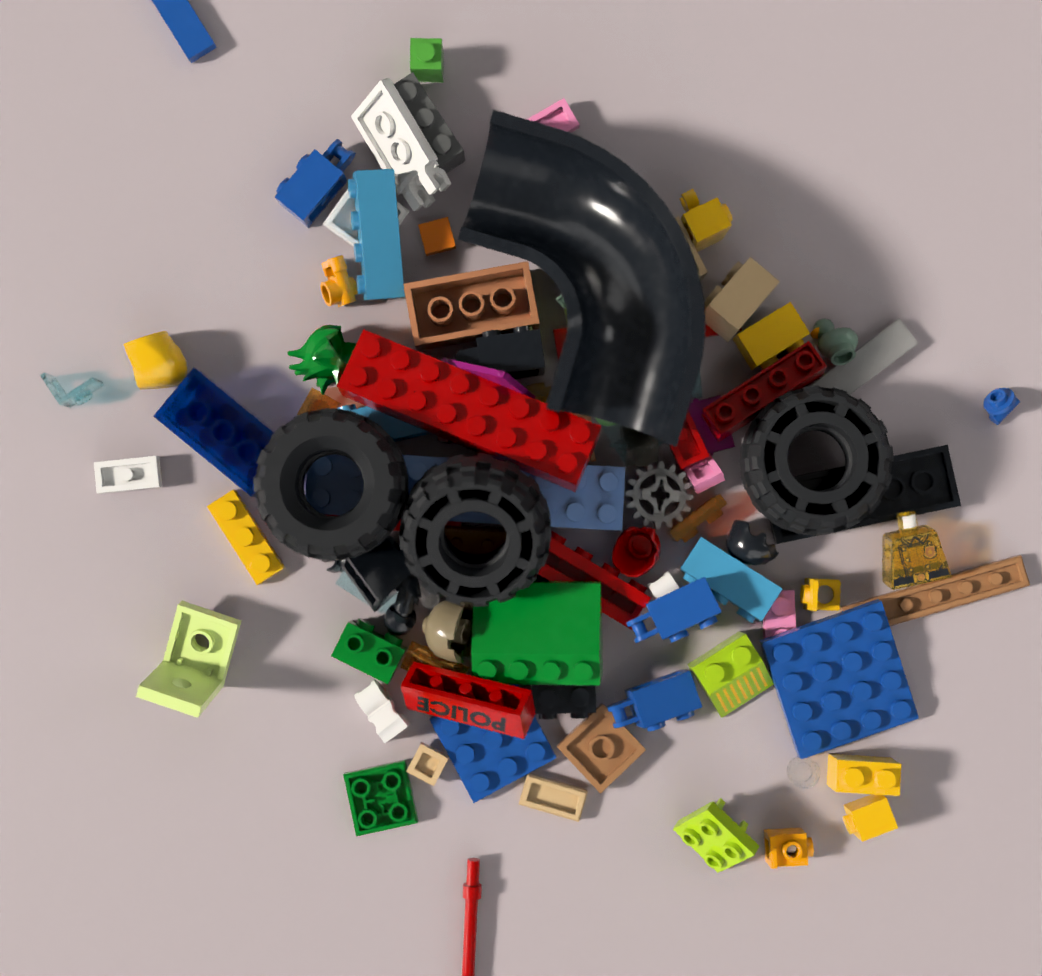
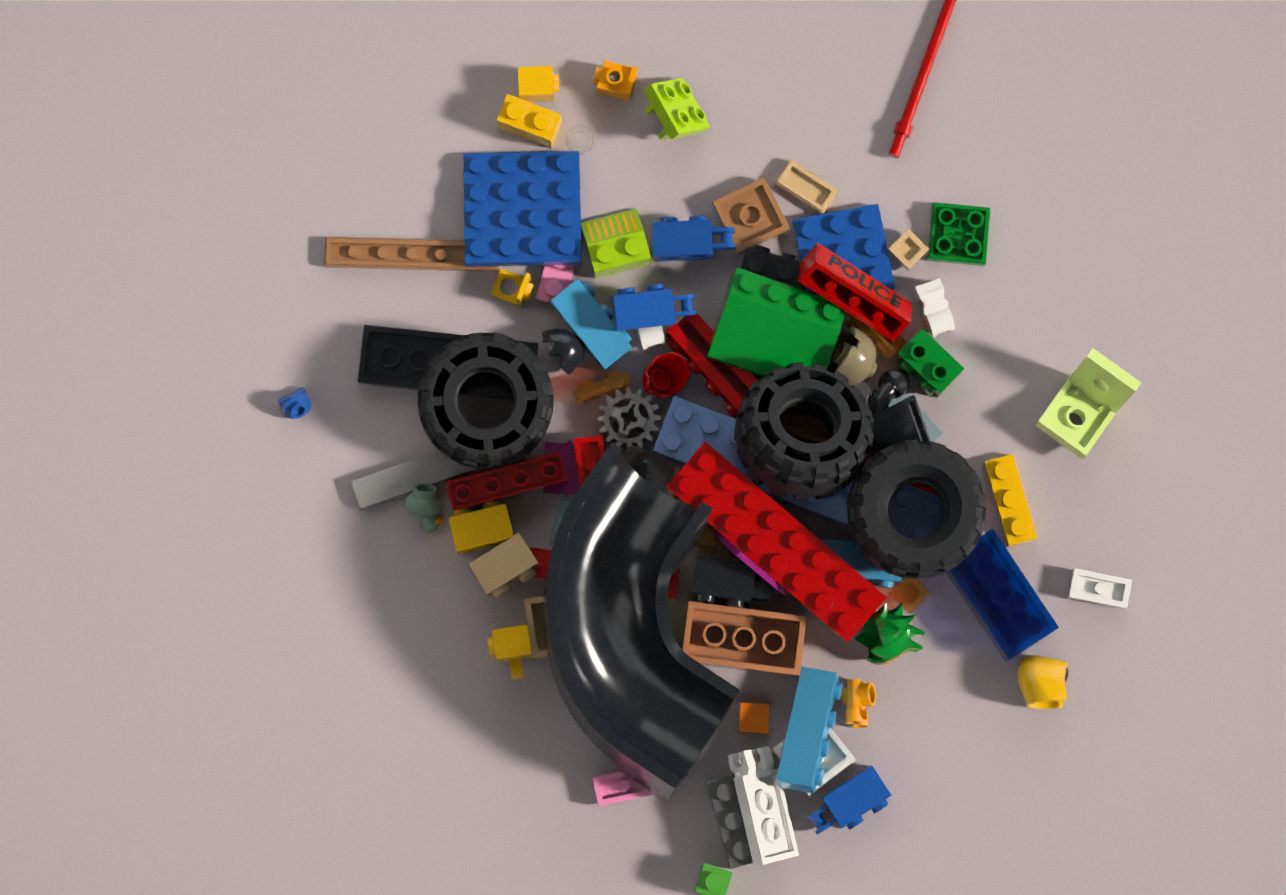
camera: 165 degrees left, 5 degrees down
(77, 396) = (1139, 677): clear light blue bracket -> none
(704, 474) = (582, 424): bright pink plate -> none
(912, 554) = (422, 295): clear yellow torso -> none

